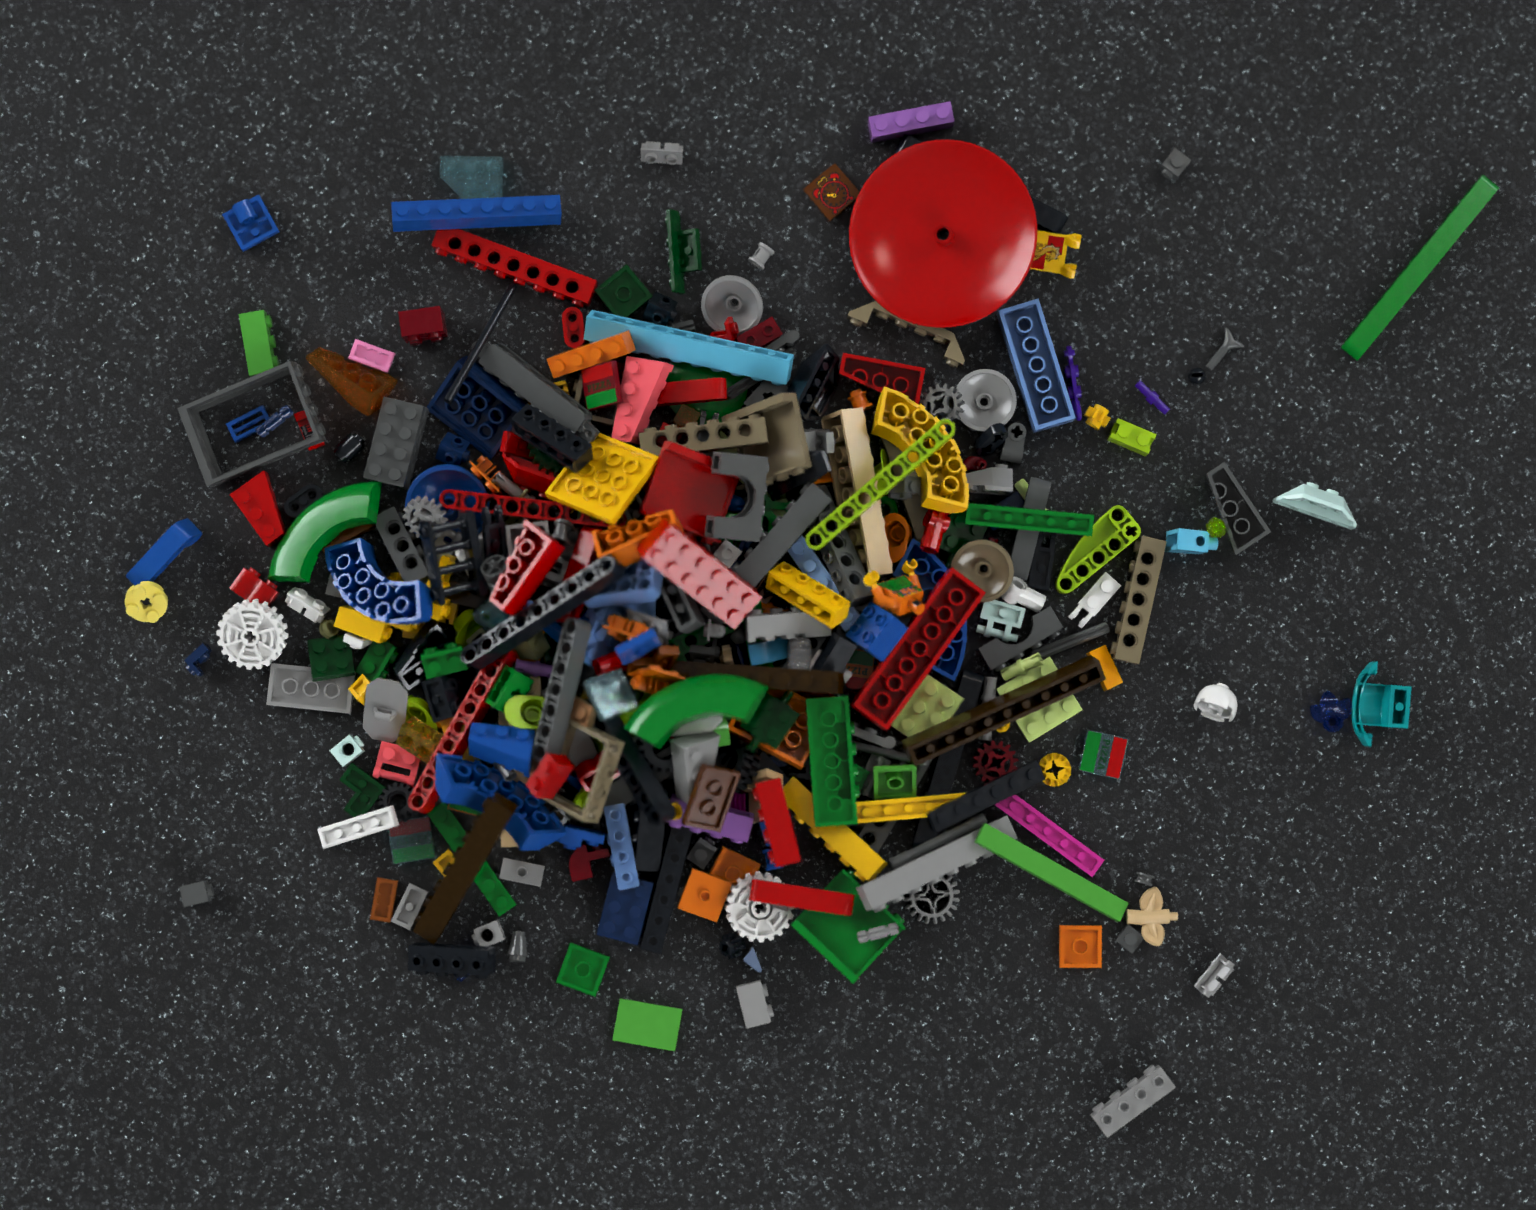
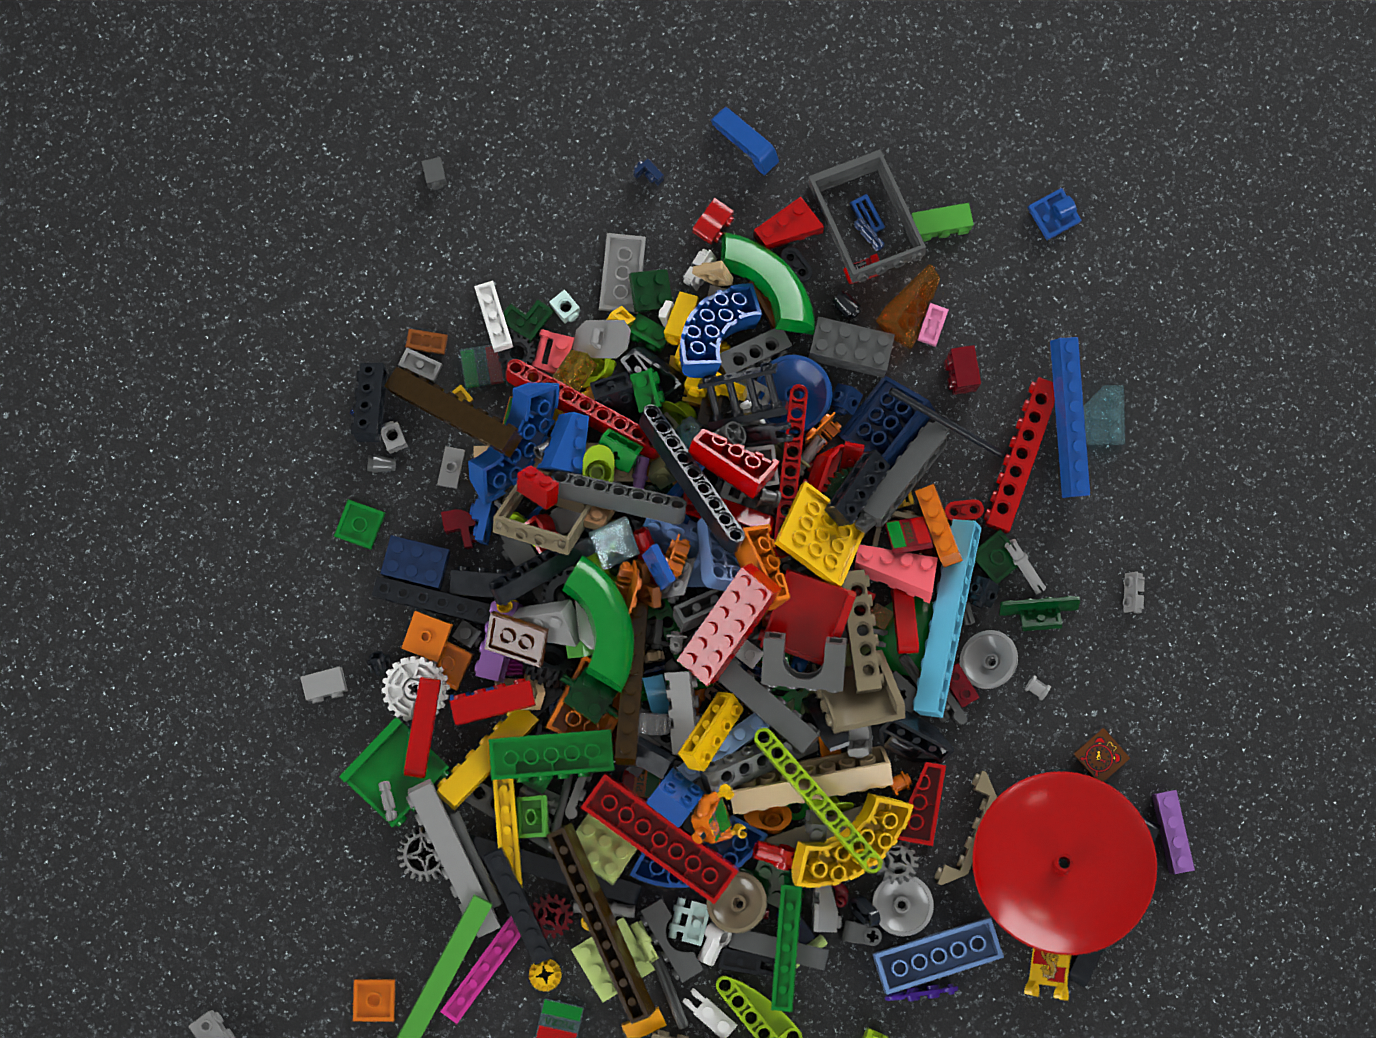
camera: 90 degrees right, 5 degrees down
(146, 613) = (691, 124): light yellow plate -> none
(263, 624) = (671, 219): white piece -> none
(314, 589) = (714, 273): none -> tan wing
(327, 628) = (677, 286): olive plate -> none
(423, 509) = (787, 371): light grey gear -> none
(486, 879) = (446, 434): green plate -> none
(621, 846) = (472, 557): medium blue bracket -> none
(628, 268) = (1028, 571): none -> light grey pin
(647, 1024) = (307, 585): bright green tile -> none
(730, 332) = (964, 658): red bracket -> none
(752, 960) = (365, 683): sand blue slope -> none
(1097, 416) = (889, 1016): yellow gear -> none

